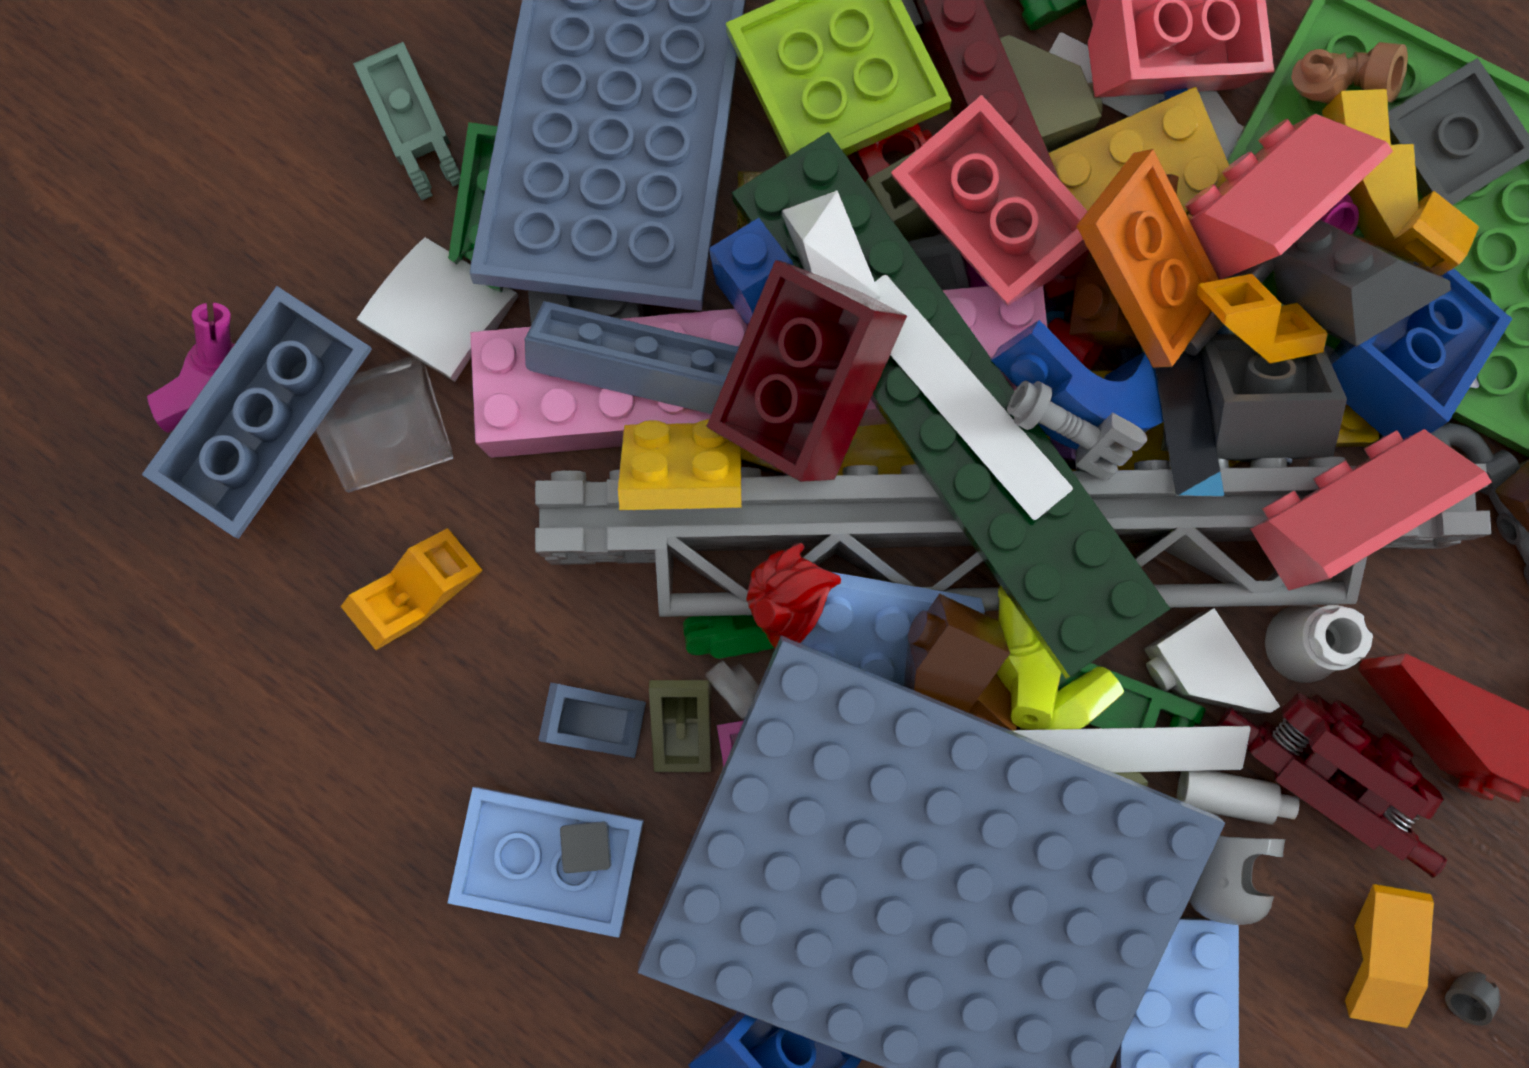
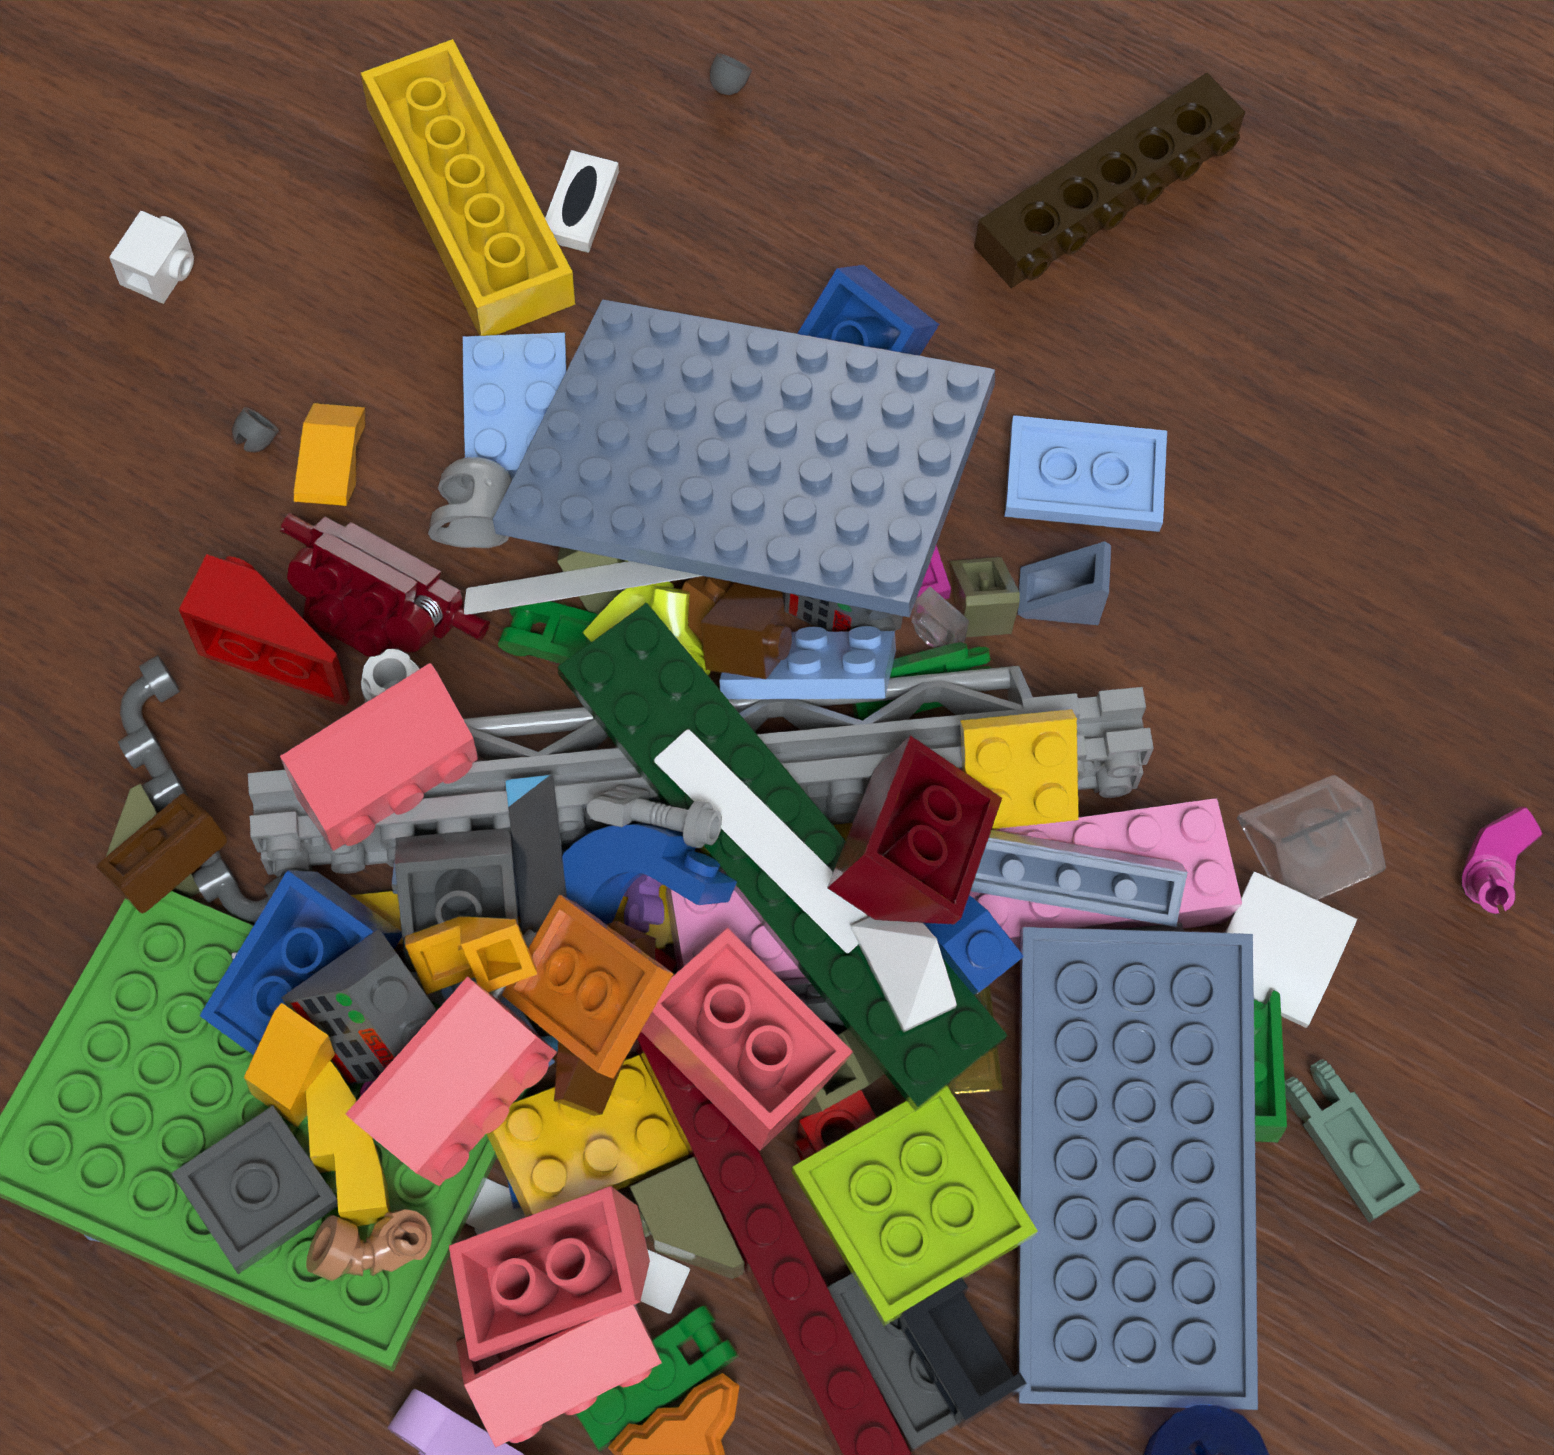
camera: 170 degrees right, 15 degrees down
(257, 412) = (1425, 818): sand blue slope -> none
(413, 590) = (1252, 688): light orange slope -> none
(585, 847) = (1053, 479): dark grey piece -> none
(788, 594) = (903, 667): red hat -> none
(1208, 666) = (498, 671): white slope -> none
(1236, 796) = (473, 570): white cylinder -> none

